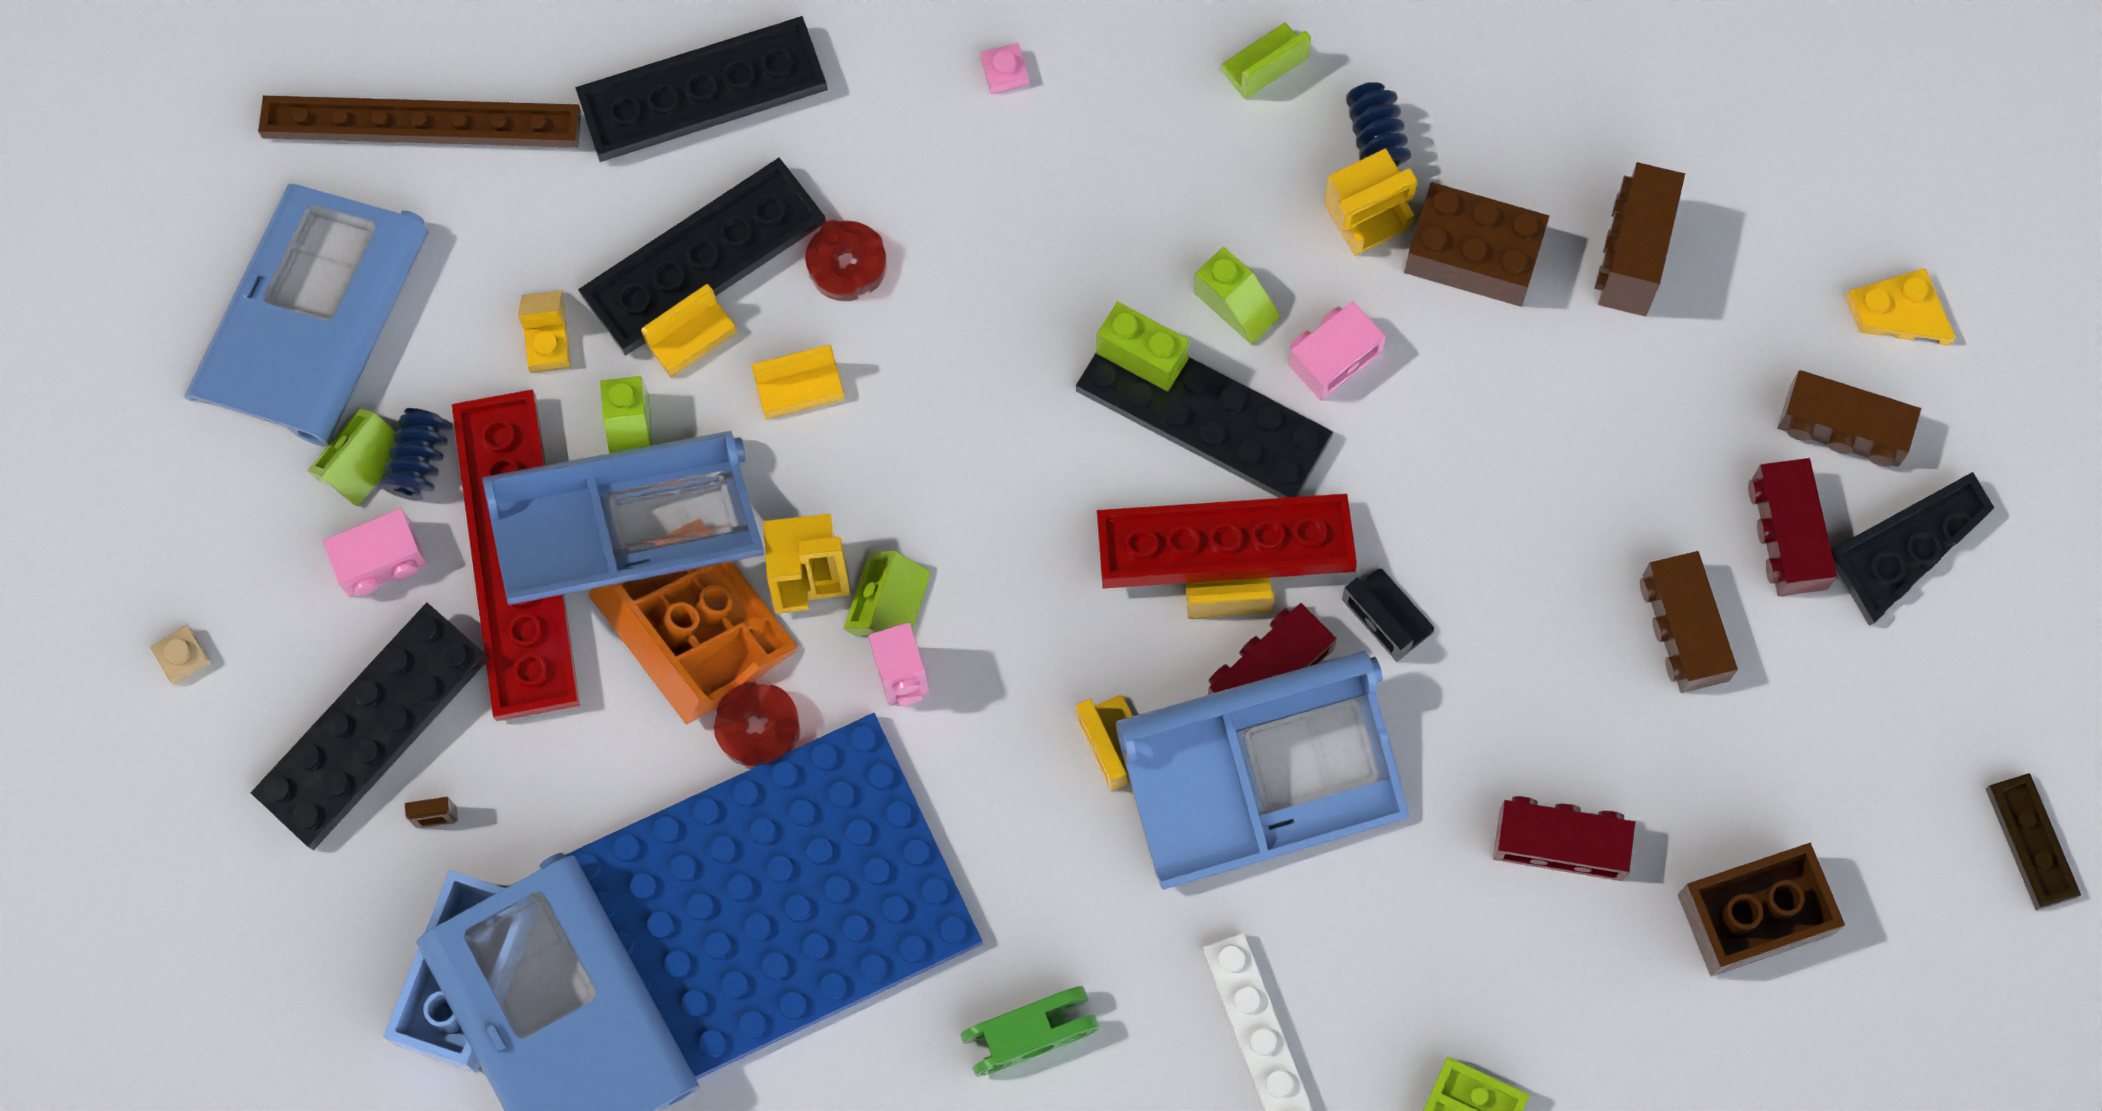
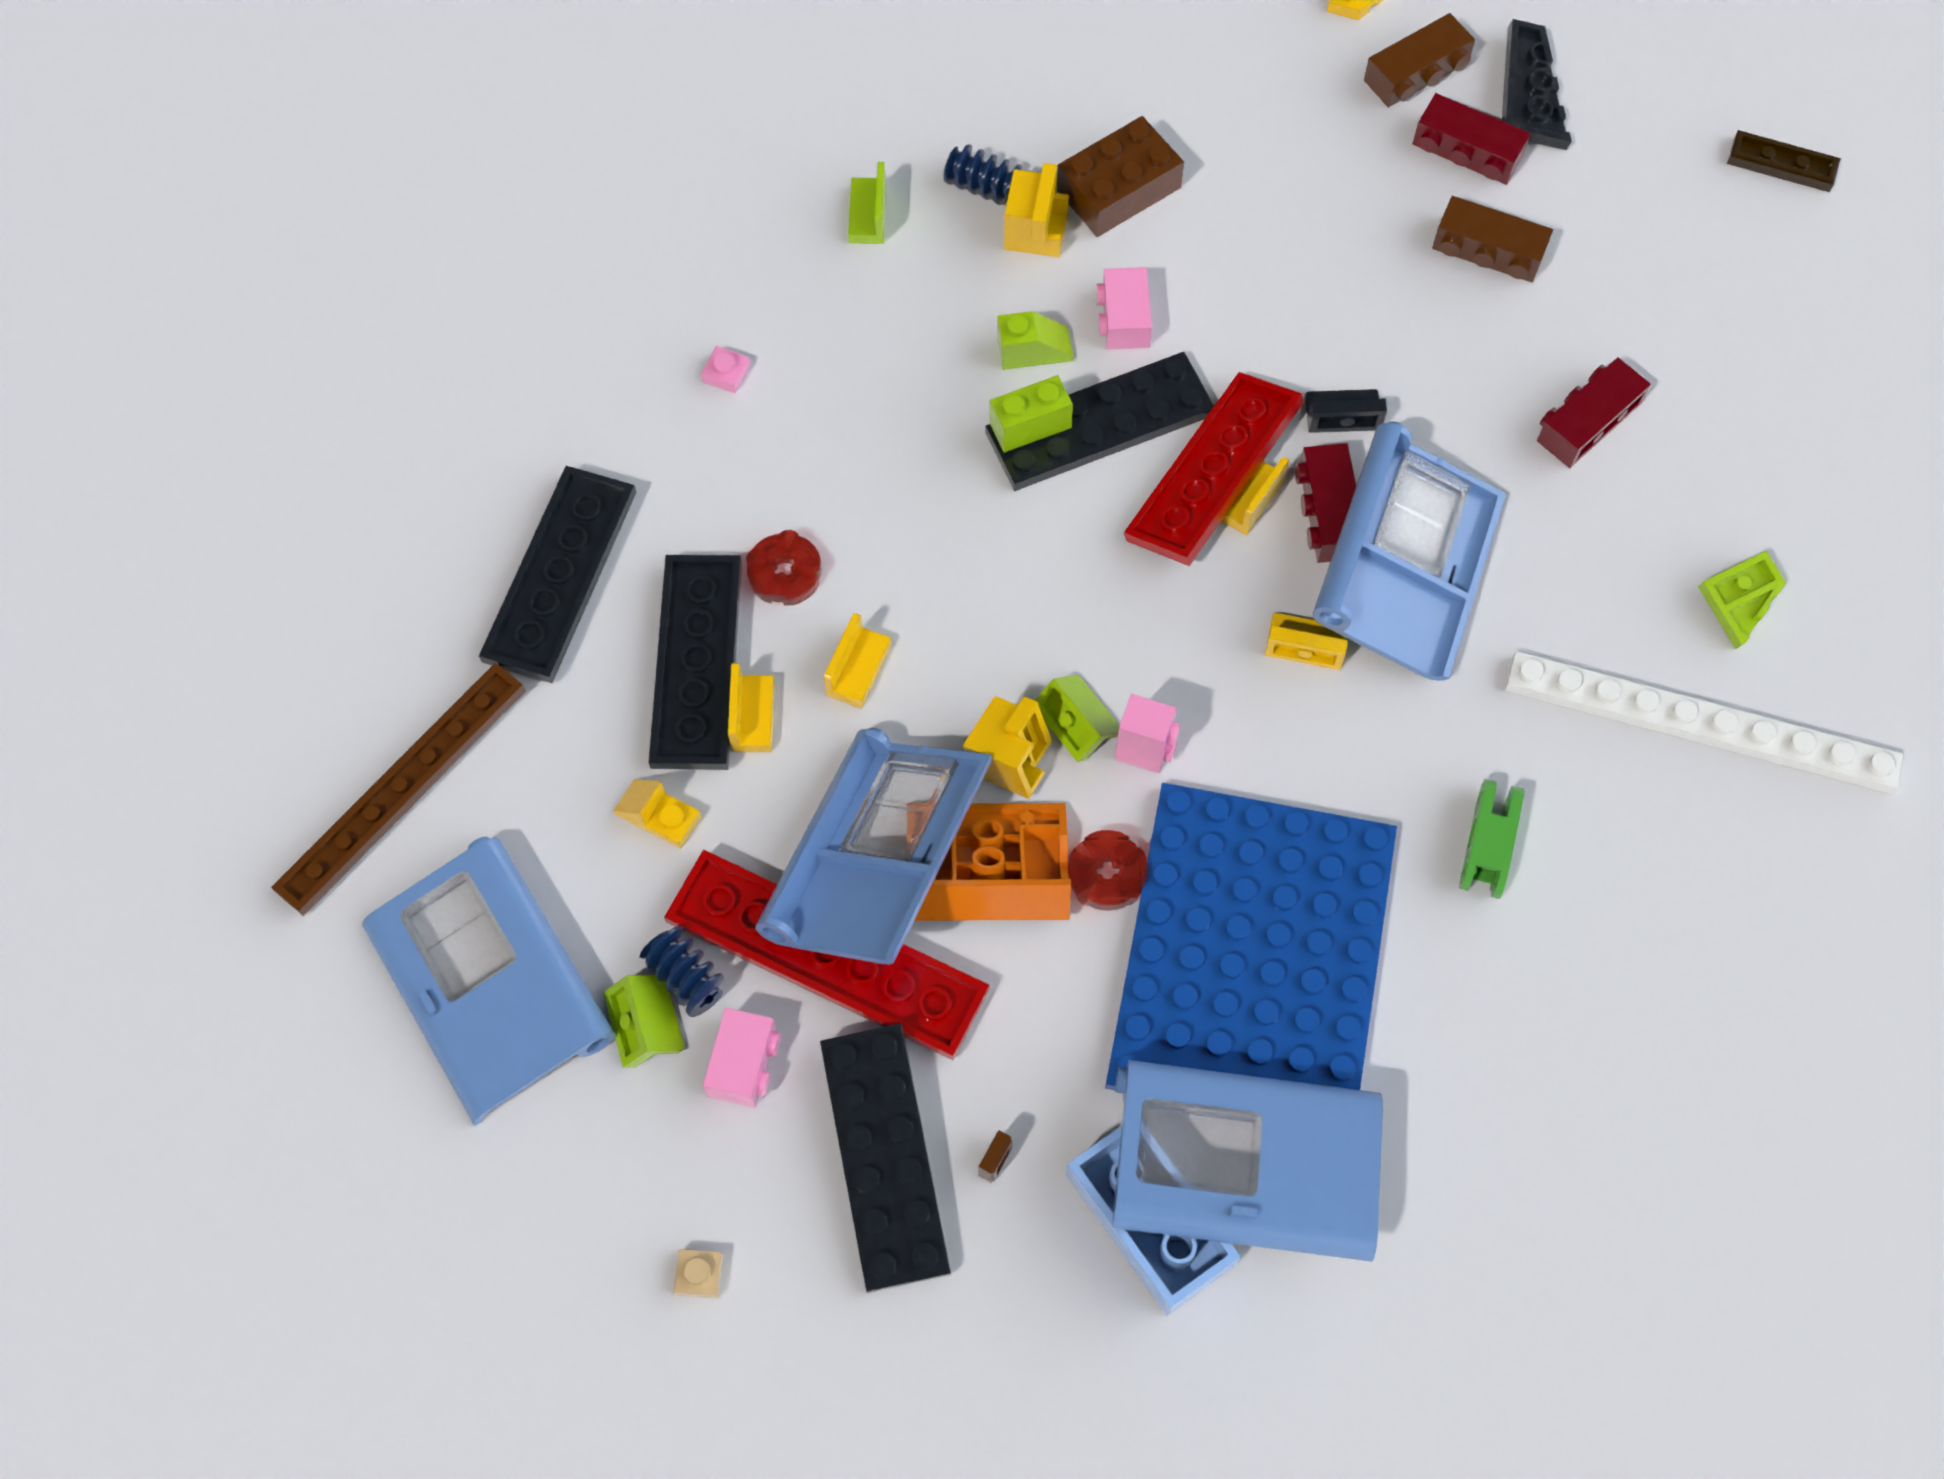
camera: 55 degrees left, 5 degrees down
(626, 413) = (783, 796): lime slope -> none
(1639, 238) = (1202, 79): reddish brown brick -> none
(1760, 909) = (1730, 330): reddish brown brick -> none

